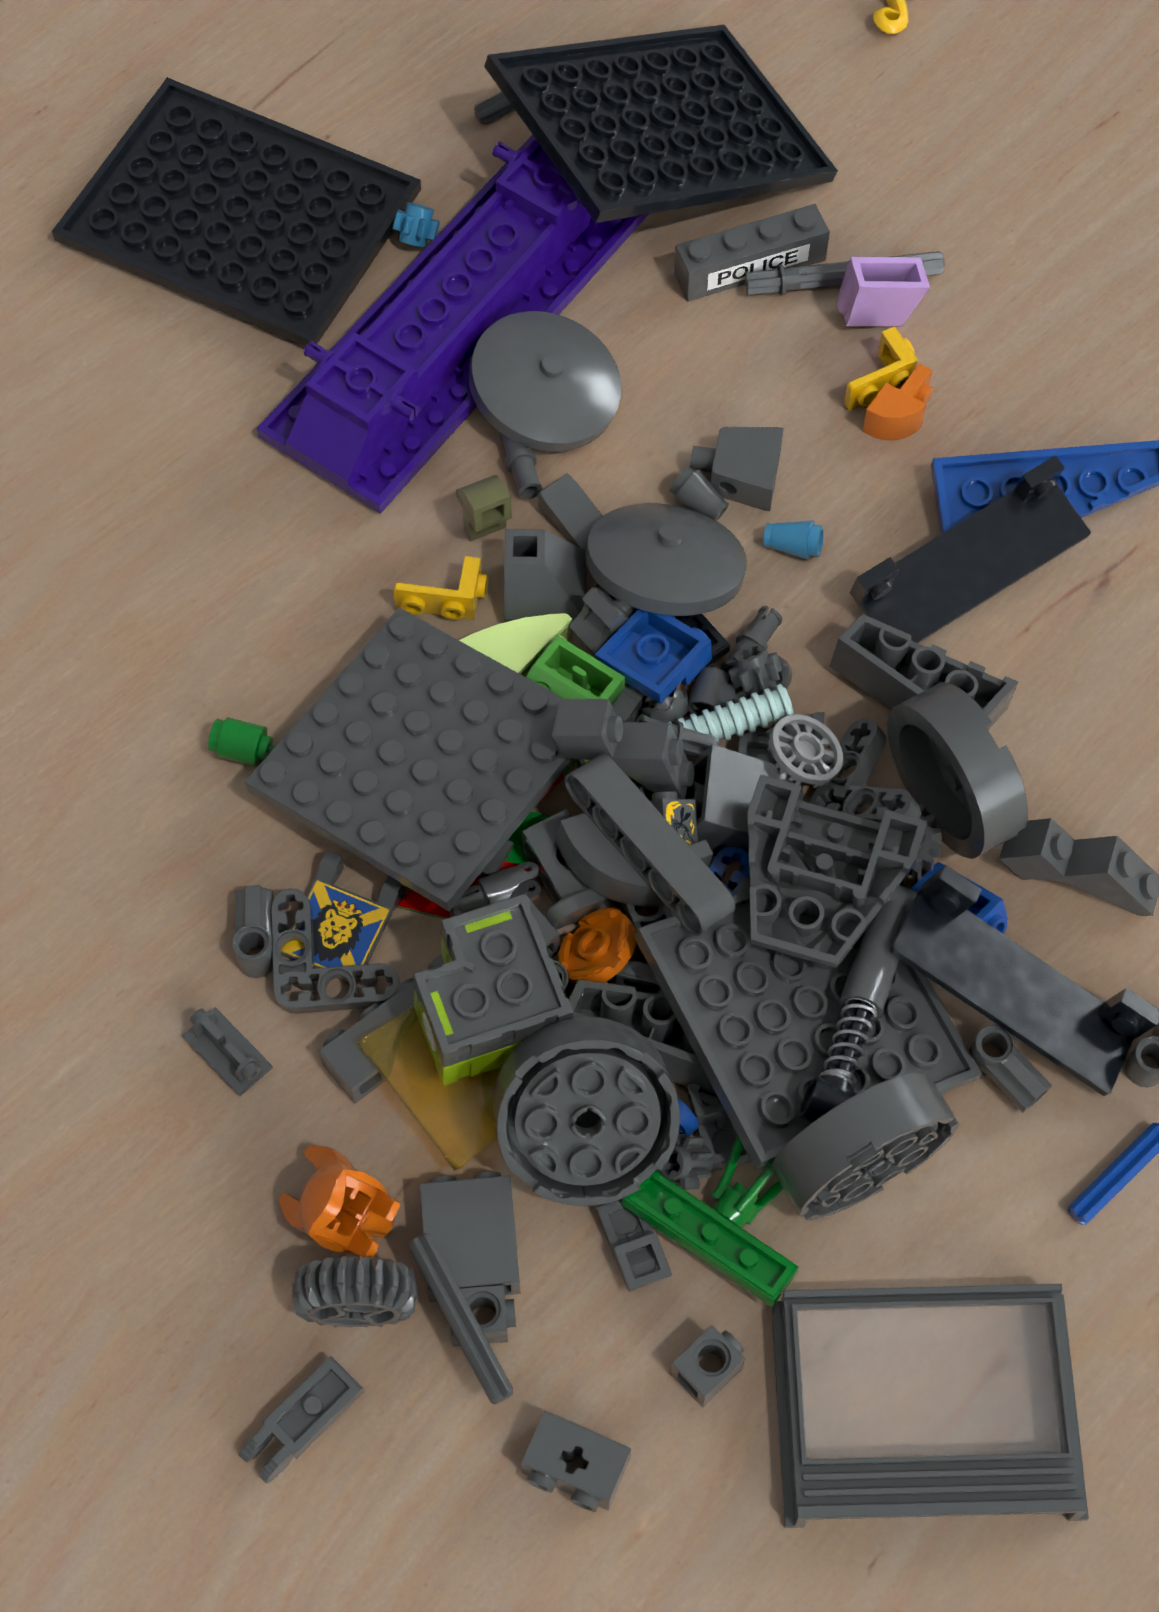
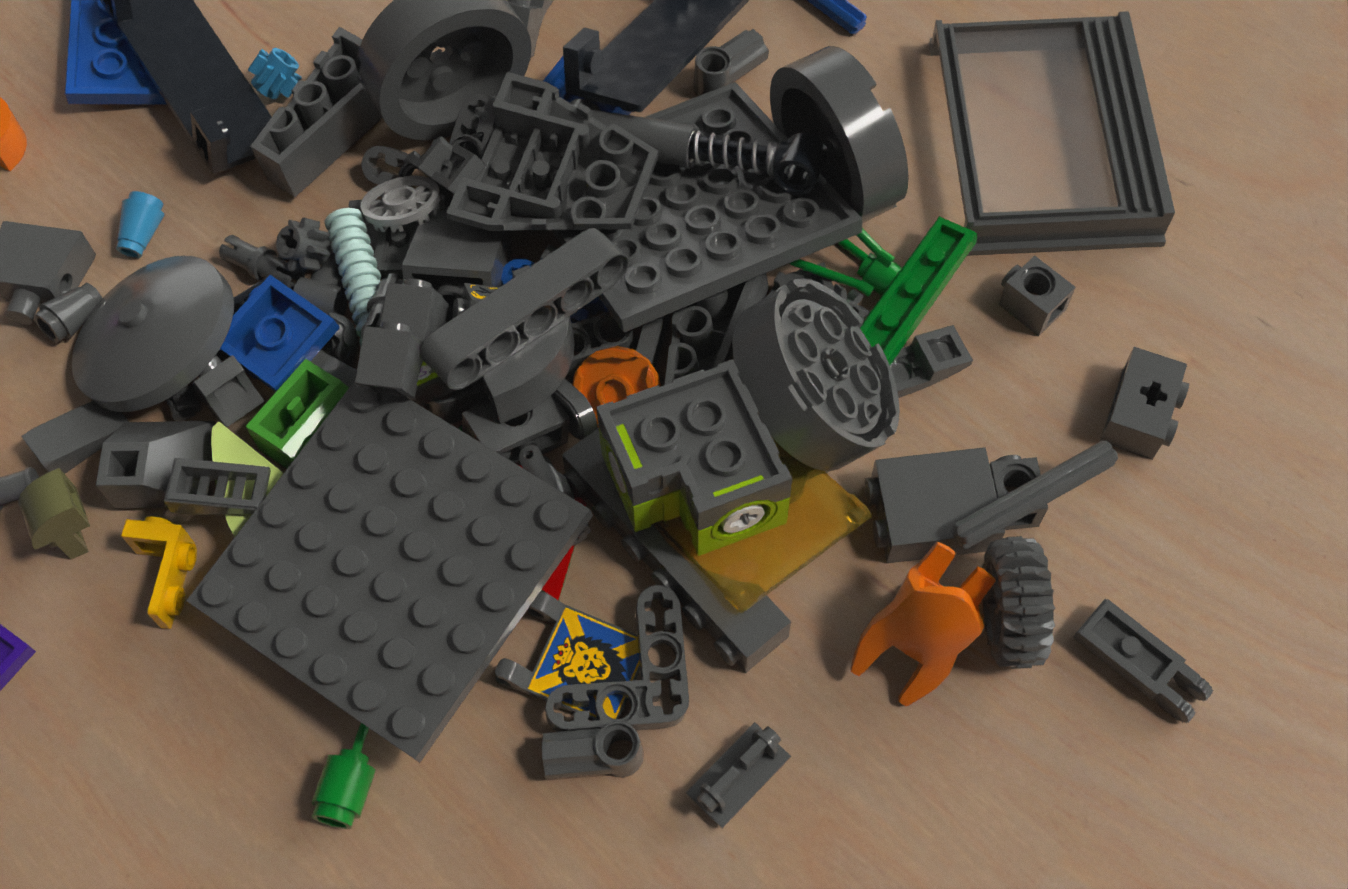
camera: 90 degrees left, 0 degrees up
(504, 592) = (187, 470): none -> dark grey slope
(840, 787) = (447, 164): none -> dark grey slope
(972, 634) = (274, 73): none -> dark azure gear

